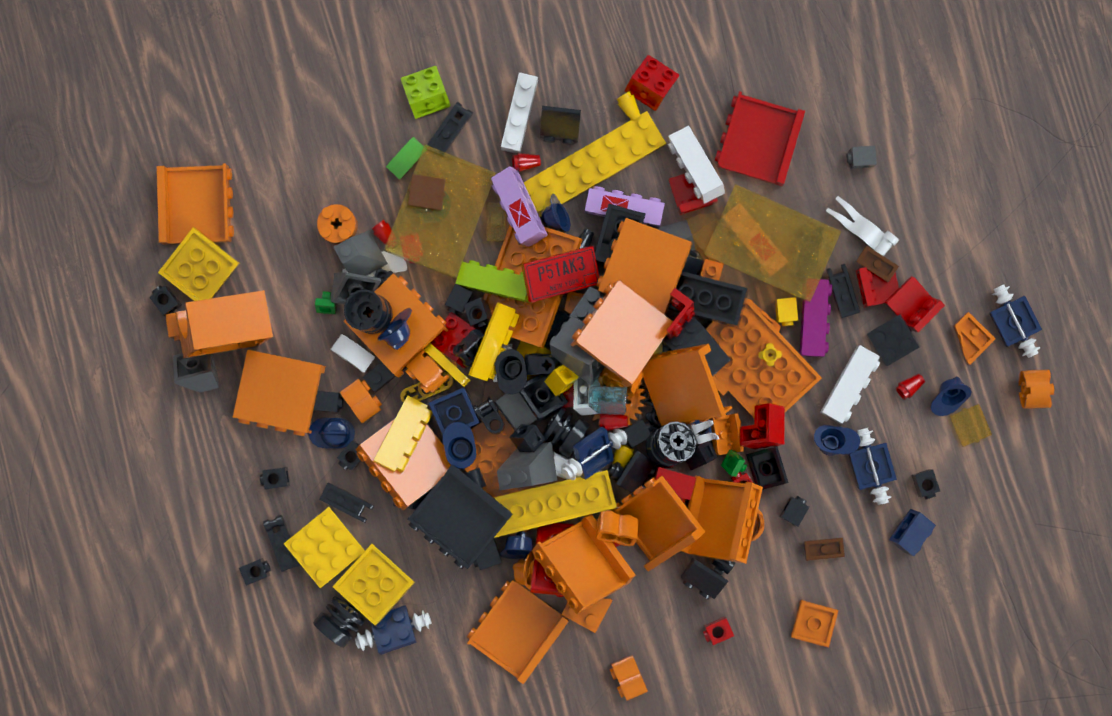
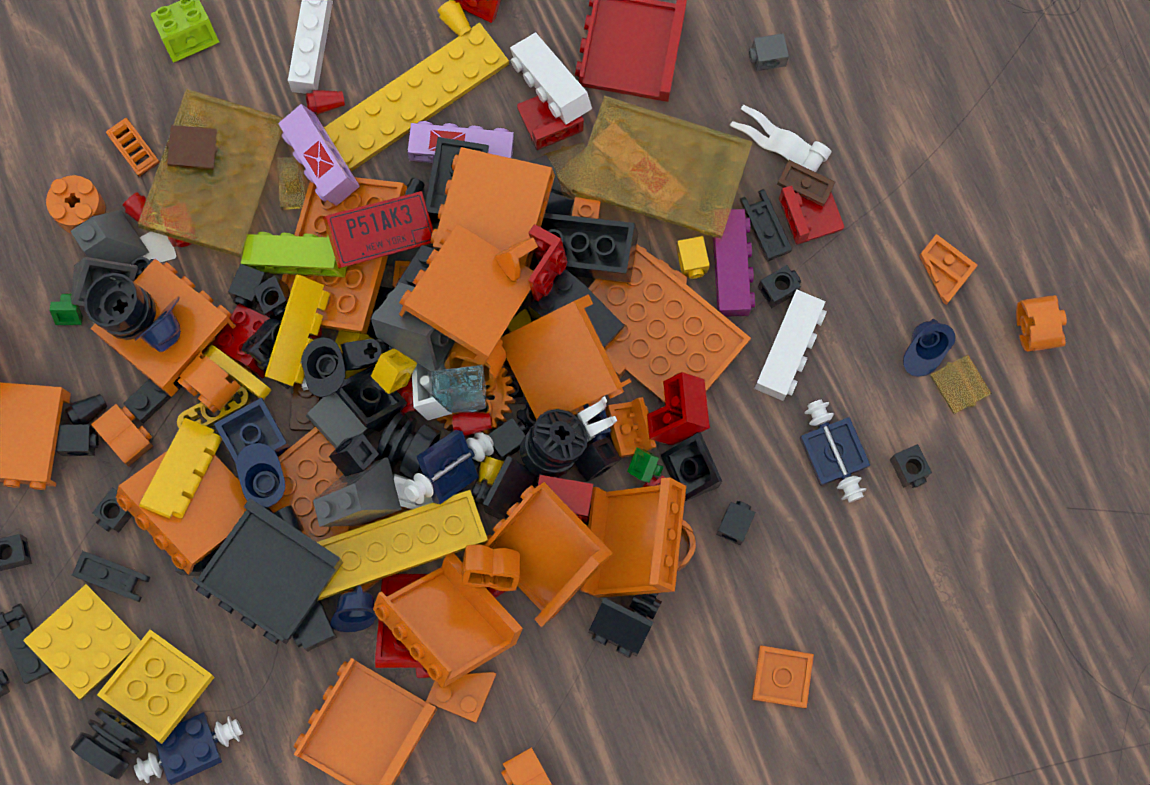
camera: 10 degrees left, 10 degrees down
(331, 433) = (85, 484): dark blue piece -> none
(335, 379) = (85, 410): none -> black cone
(352, 353) = (107, 371): white slope -> none
(373, 168) = (123, 133): none -> orange slope
(406, 158) = (162, 112): bright green slope -> none
(450, 128) = (221, 67): black plate -> none
(489, 415) = (300, 431): black piece -> none
(523, 570) = (365, 641): orange piece -> none
(556, 215) = (369, 162): dark blue piece -> none
(560, 124) = (364, 43): black slope -> none
(658, 307) = (509, 258): none -> orange tile
(726, 631) = (659, 694): red brick -> none
(770, 349) = (676, 306): yellow plate -> none
(824, 549) = (783, 570): reddish brown plate -> none
(836, 440) = (780, 419): dark blue piece -> none
(839, 339) = (774, 295): none -> black brick
(893, 340) = (841, 280): black plate -> none
(909, 387) = (870, 341): red cone -> none
(912, 532) = (901, 534): dark blue brick -> none
(914, 304) = (862, 231): red bracket -> none
(1015, 321) = (1000, 240): dark blue plate -> none

